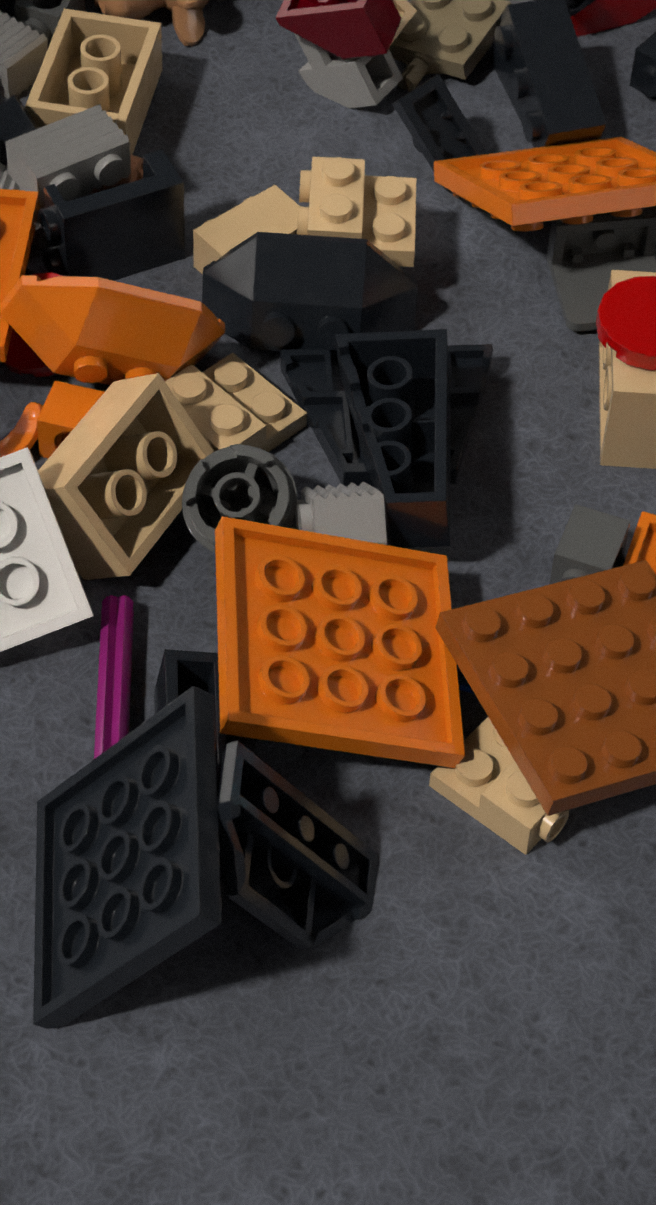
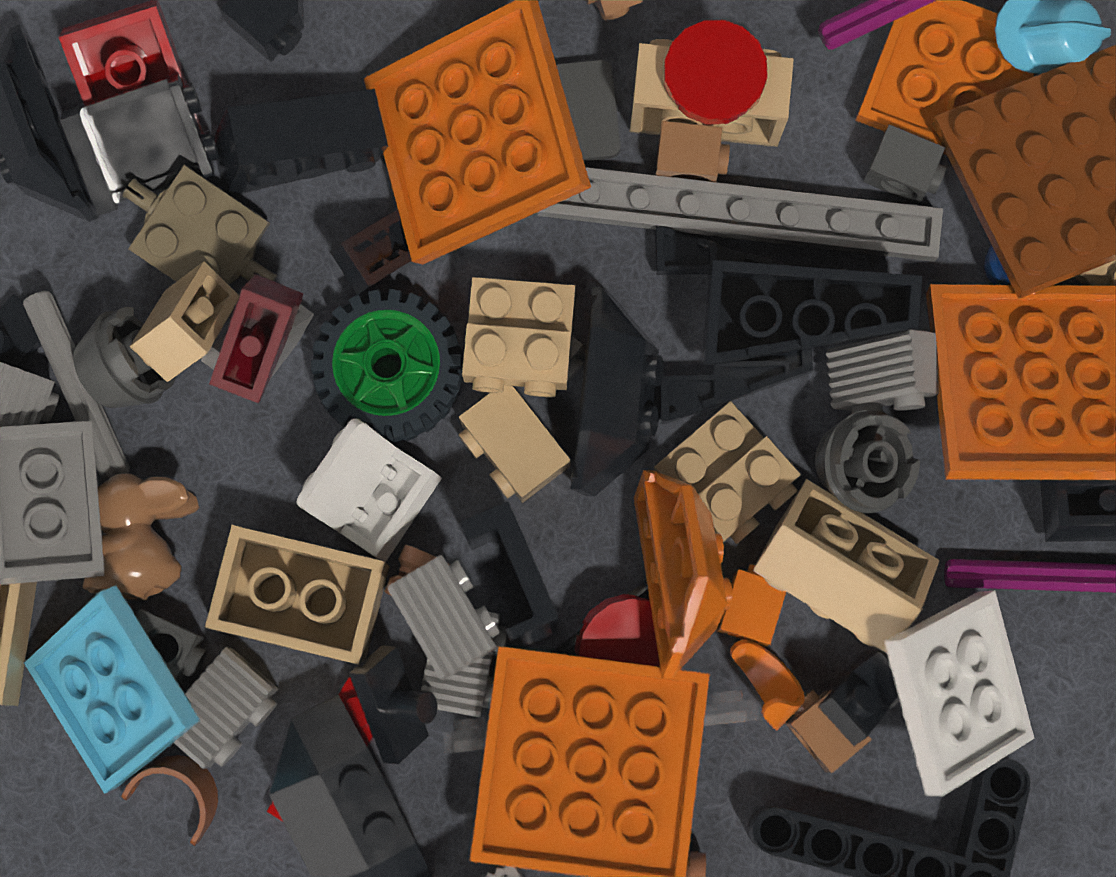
camera: 85 degrees left, 30 degrees up
(206, 121) = (367, 489): none -> white bracket
(323, 128) = (382, 327): none -> wheel
(517, 427) = (755, 214): none -> light grey plate
(574, 373) = (691, 152): none -> medium nougat brick

